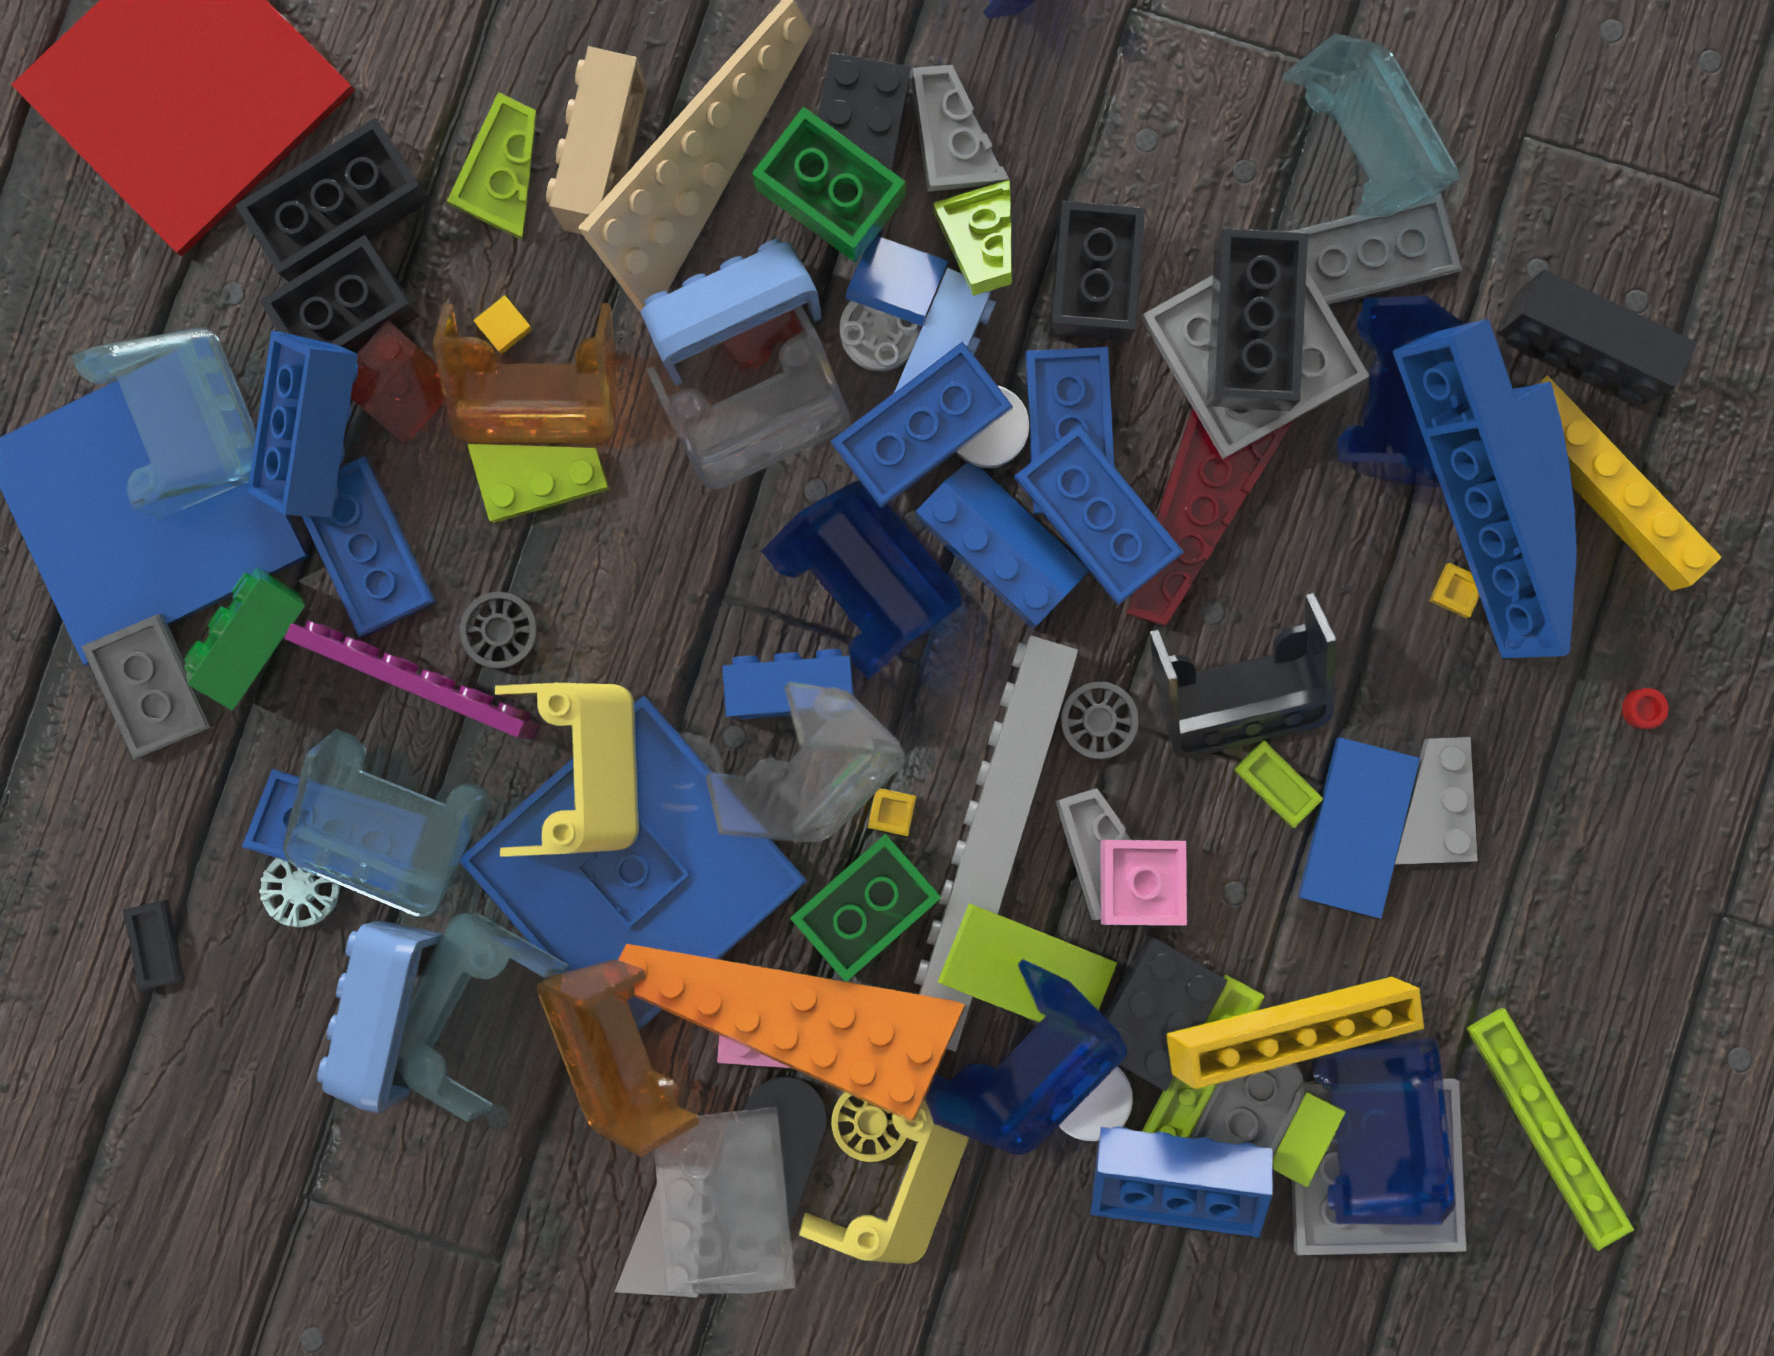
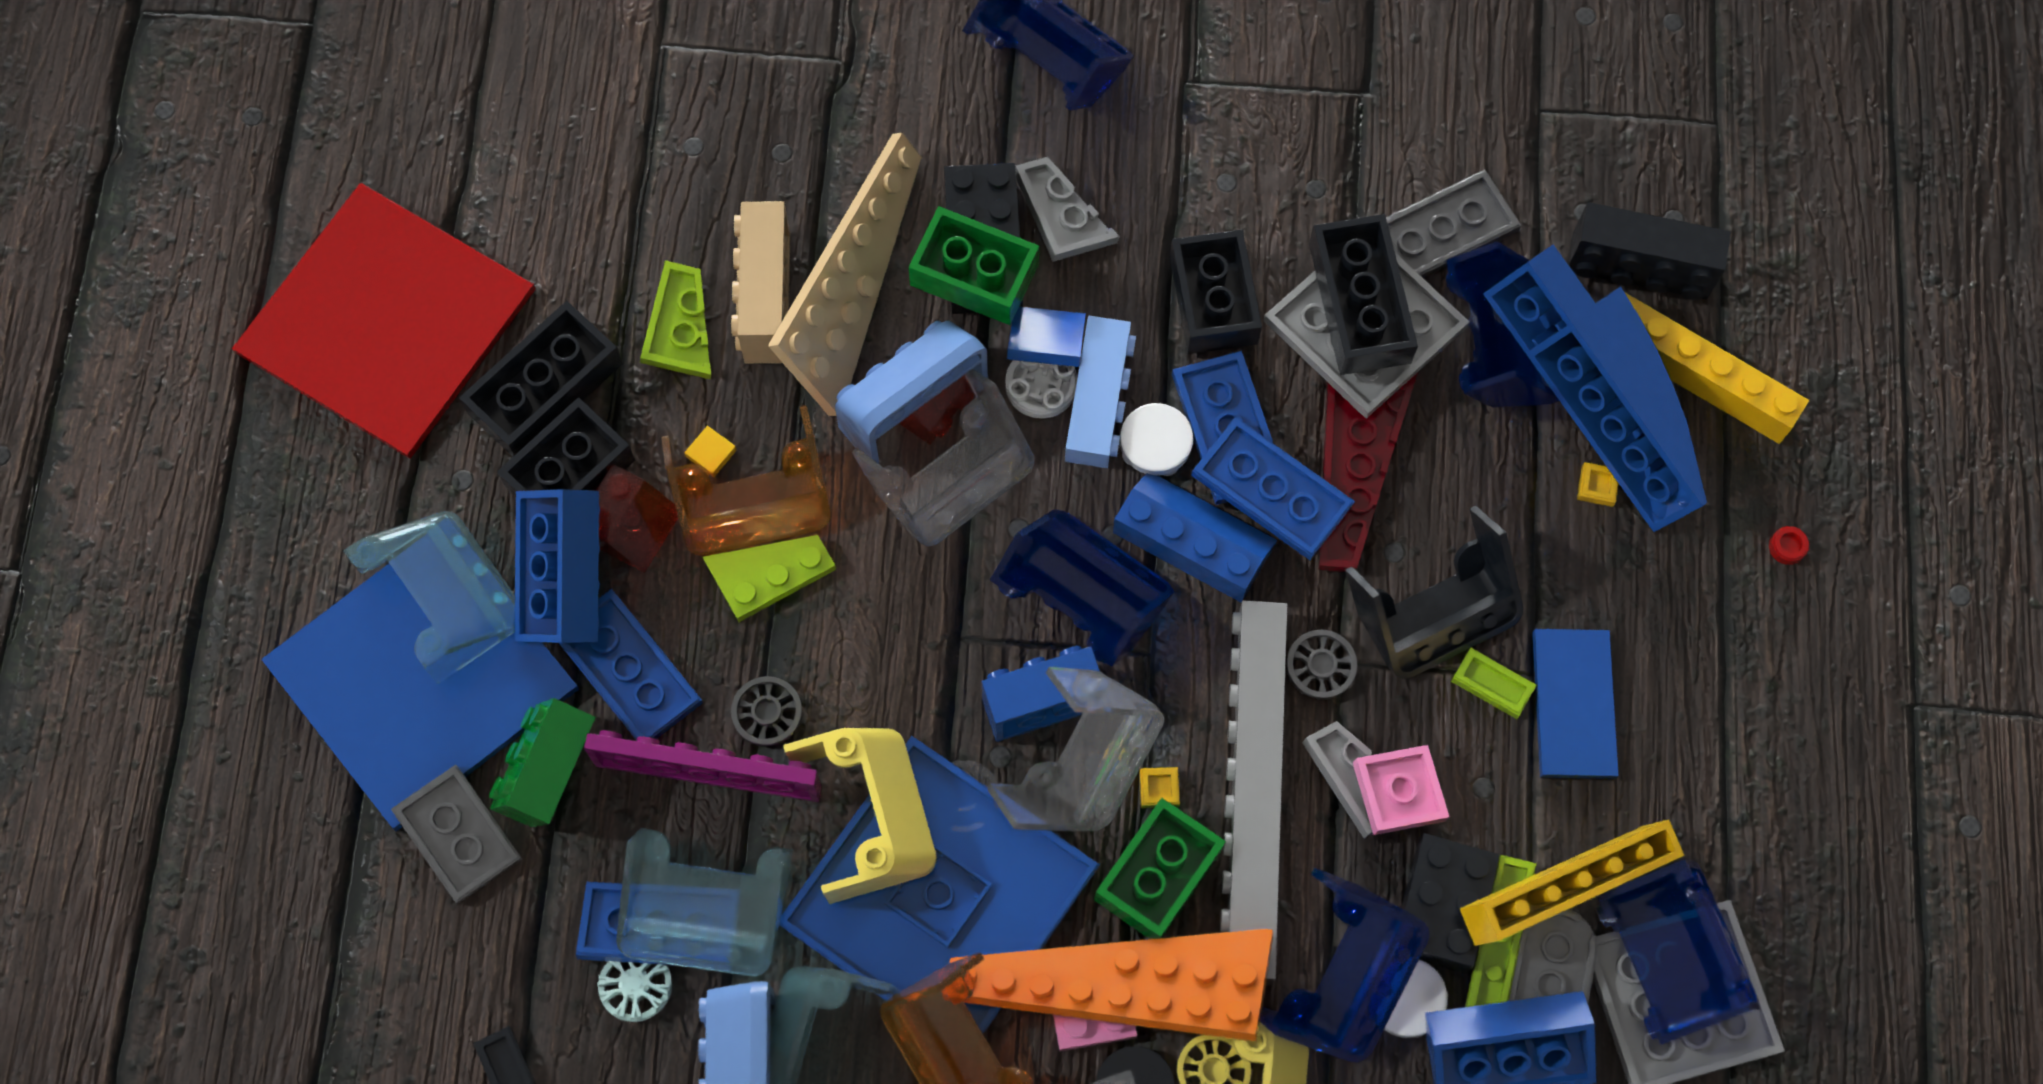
camera: 20 degrees left, 15 degrees down
(921, 425) = (1100, 446): blue tile -> none
(980, 235) = (1107, 284): lime wing -> none
(987, 957) = (1288, 895): lime tile -> none
(1307, 1138) = (1612, 980): lime tile -> none
(1380, 120) = (1415, 121): clear light blue windscreen -> none
(1441, 807) = (1641, 668): light grey wing -> none
(1550, 1129) = (1825, 928): lime tile -> none

